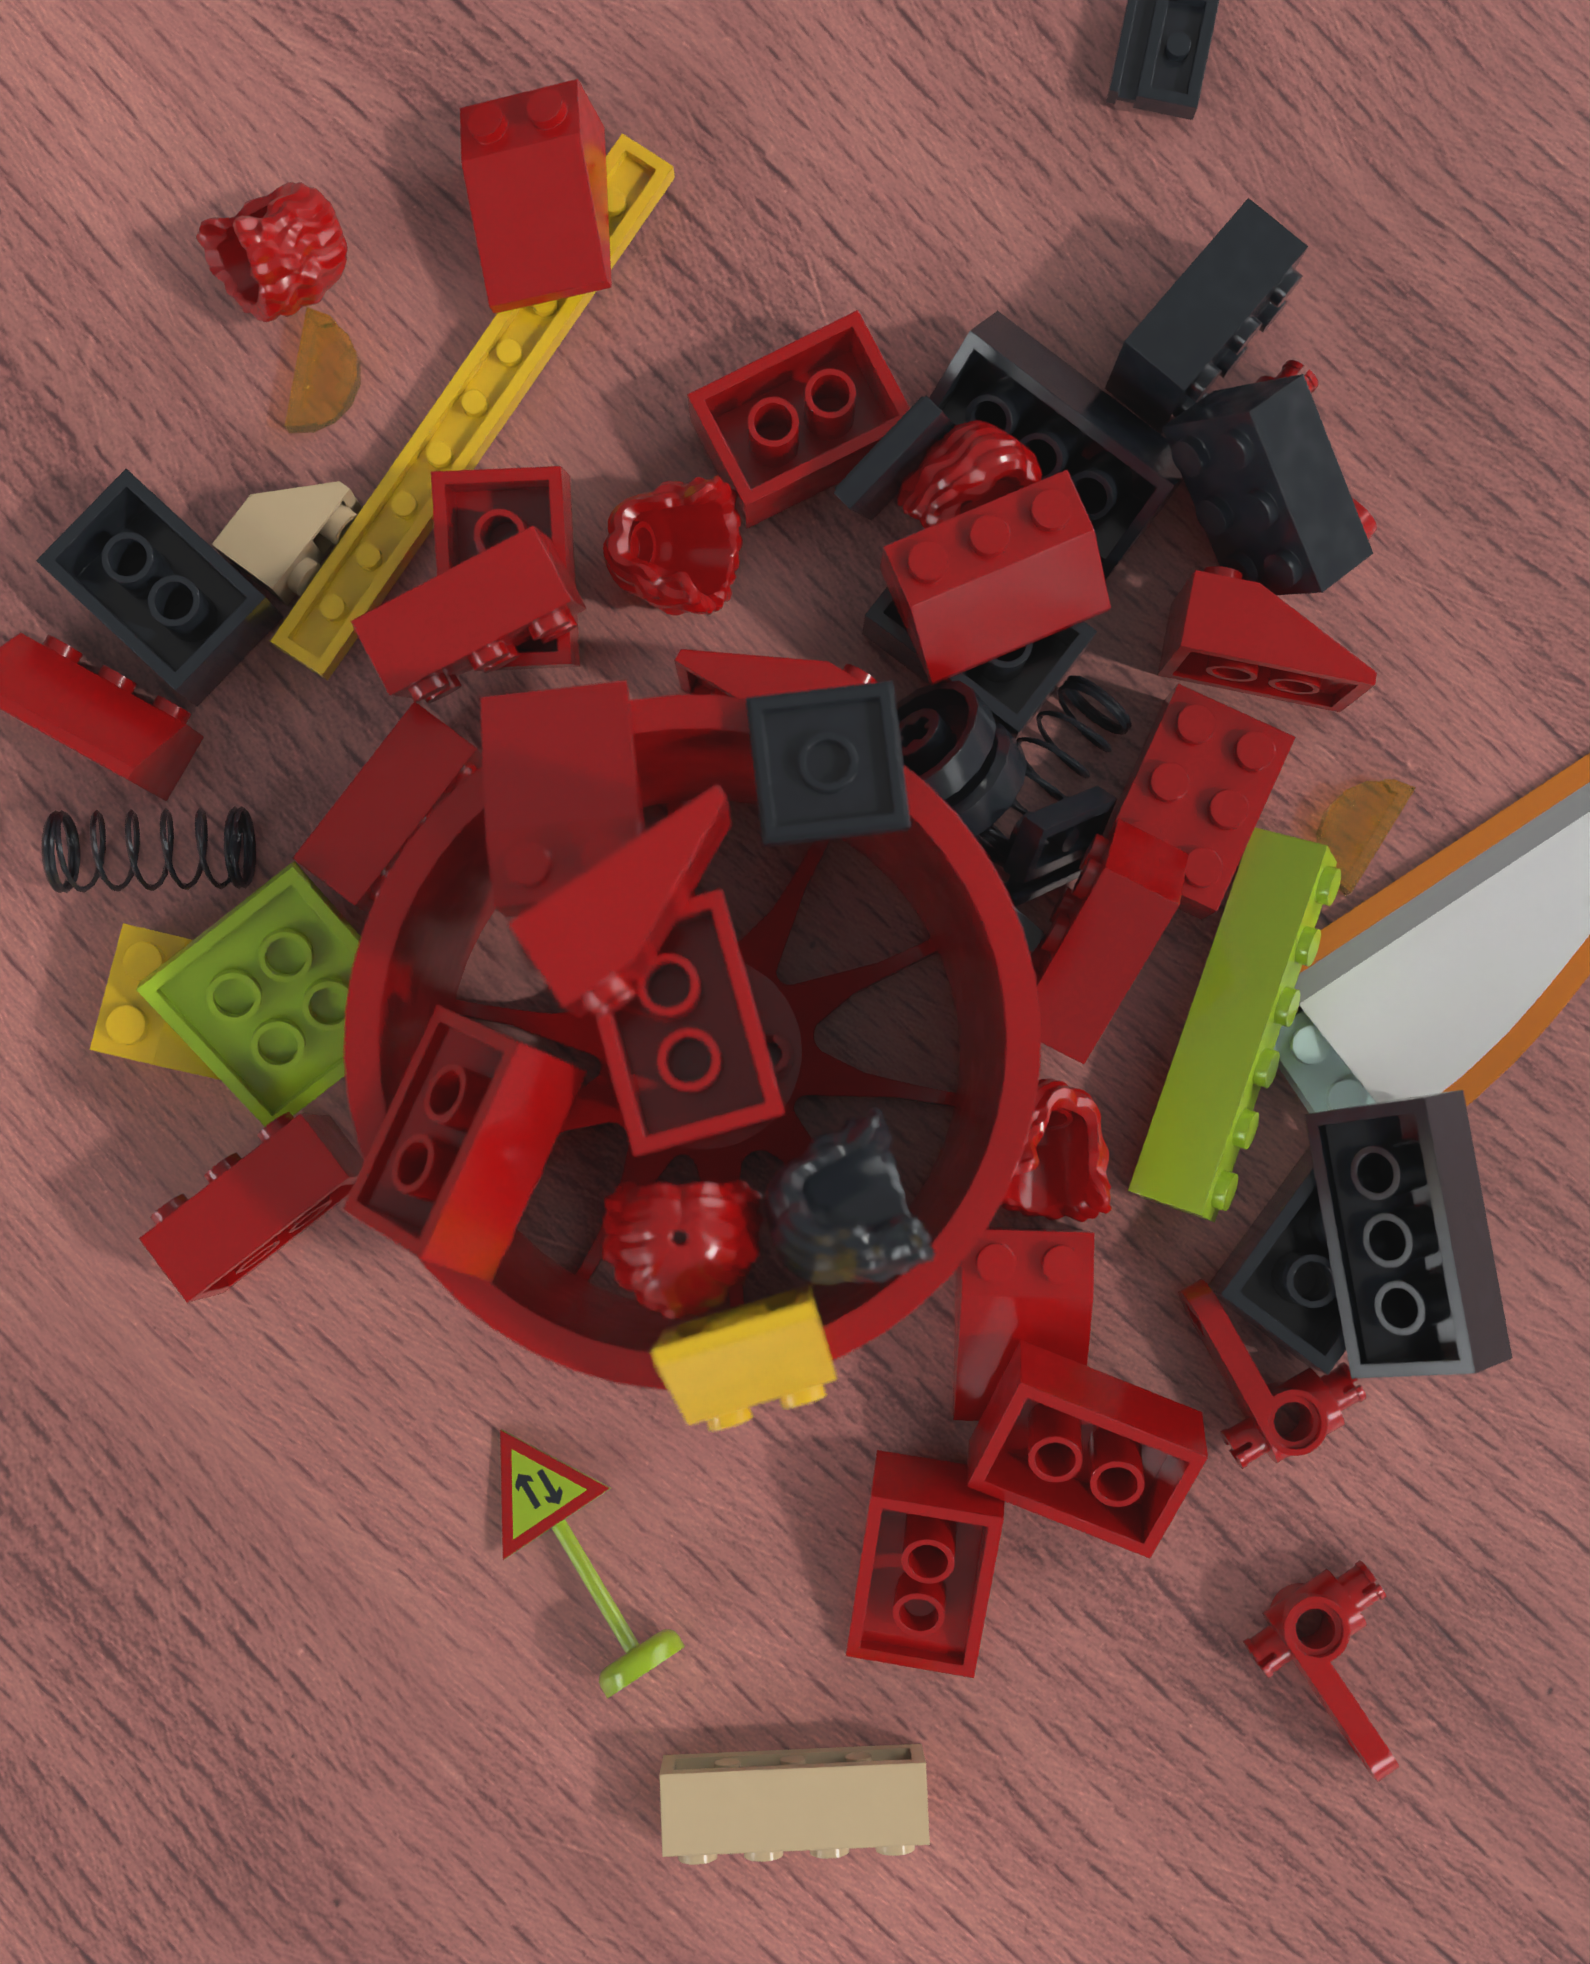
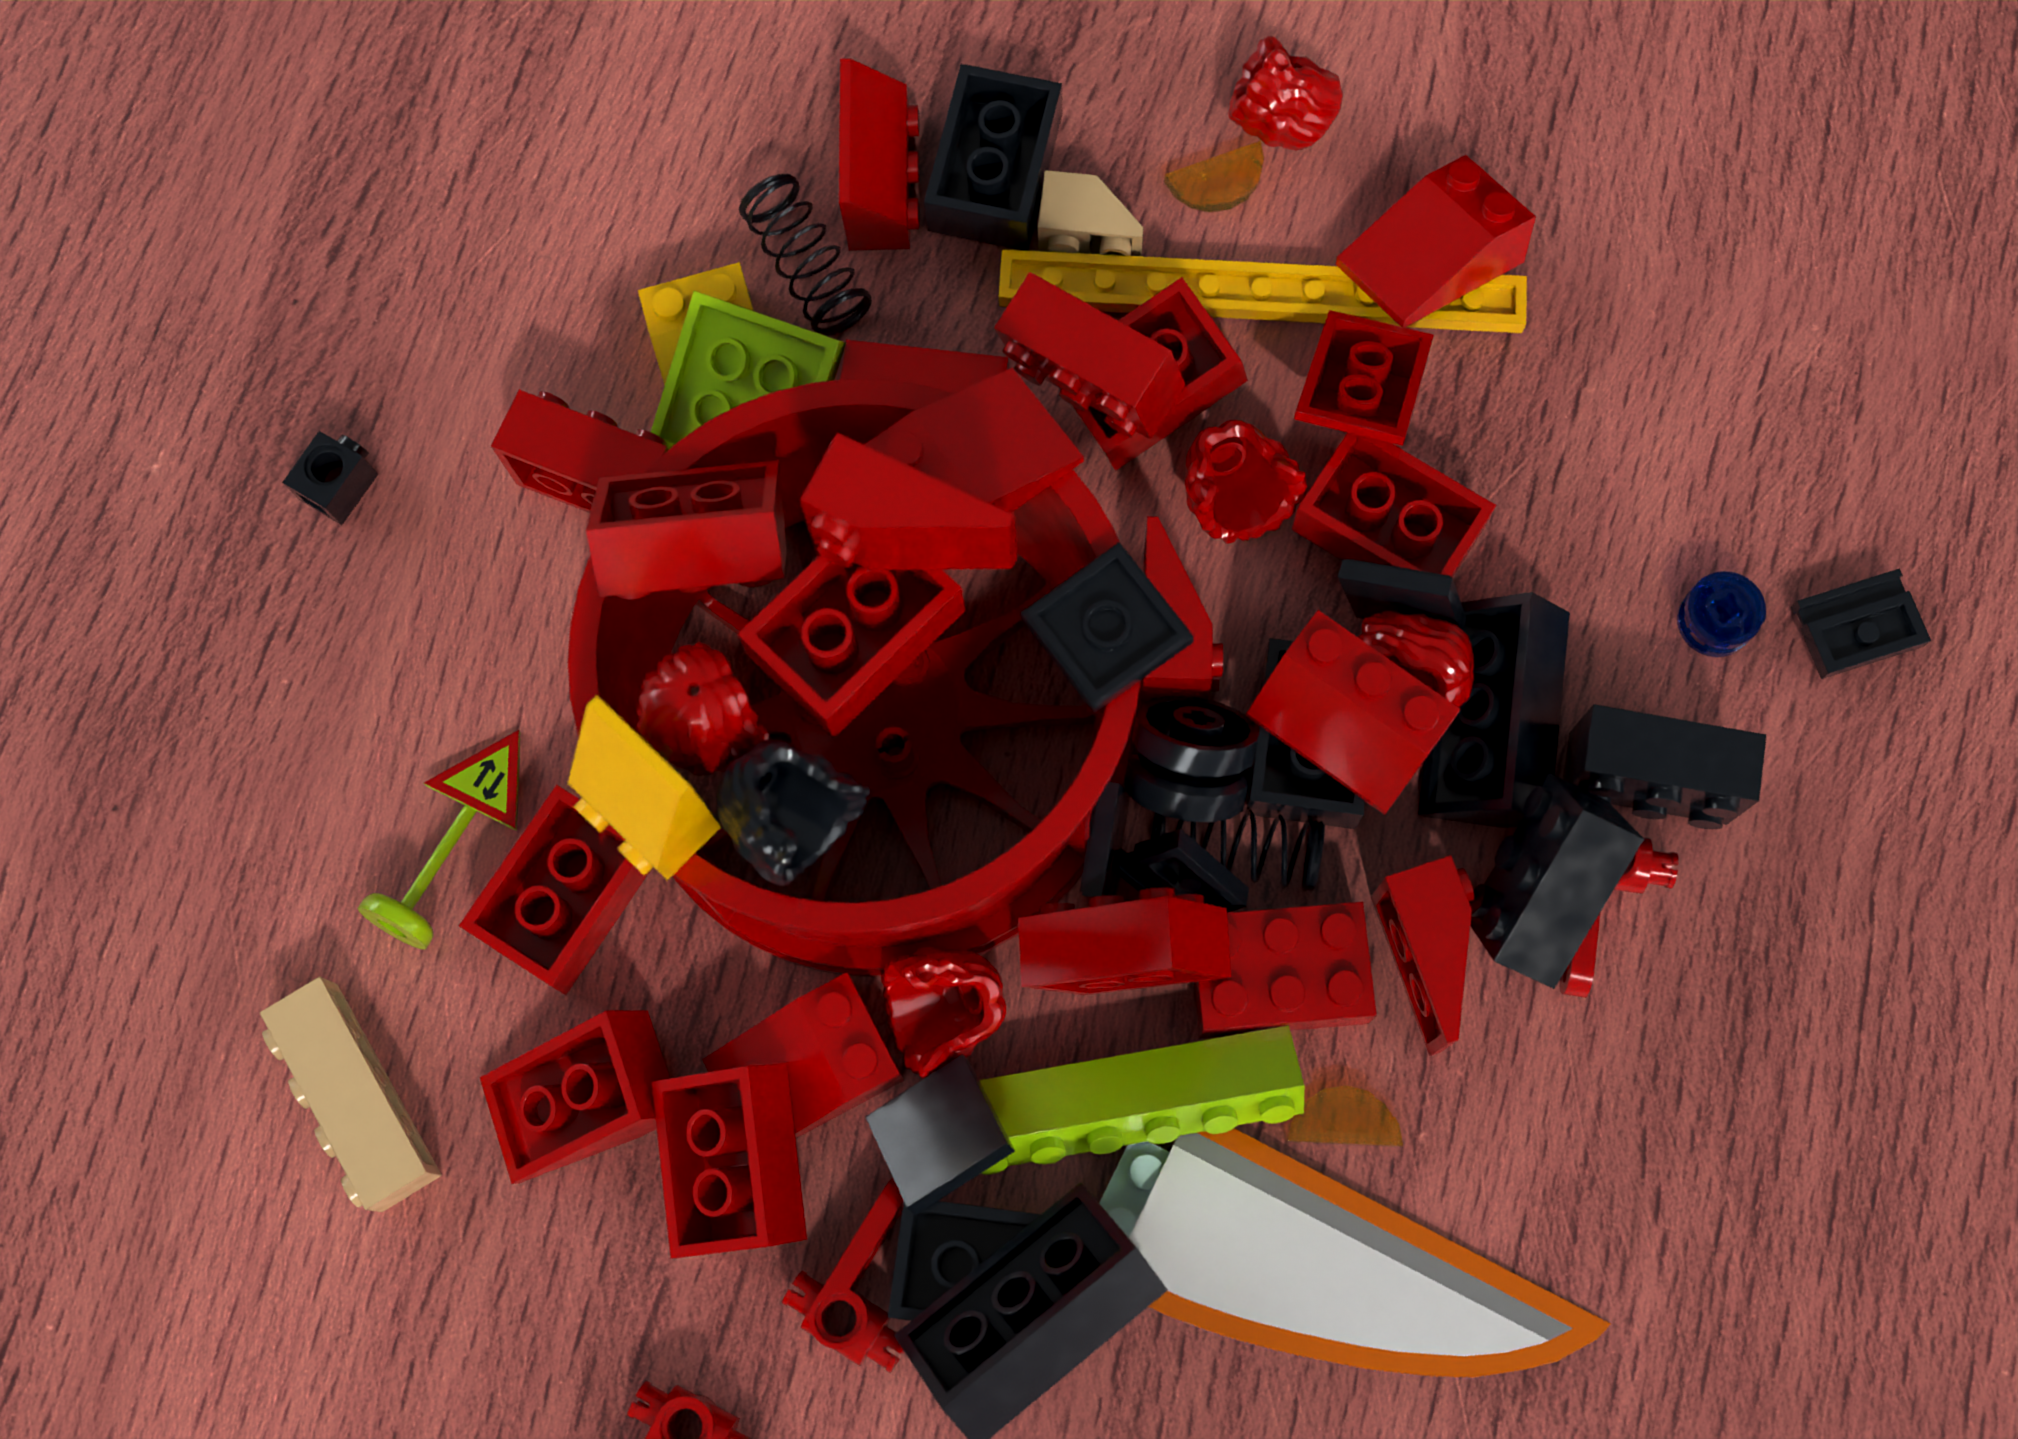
camera: 70 degrees right, 10 degrees down
(84, 1512) = (337, 497): none -> black brick
(648, 357) = (1365, 377): none -> red slope
(708, 1493) = (555, 894): none -> red brick
(1078, 169) = (1721, 612): none -> clear blue wheel
(1180, 1226) = (939, 1134): none -> black tile

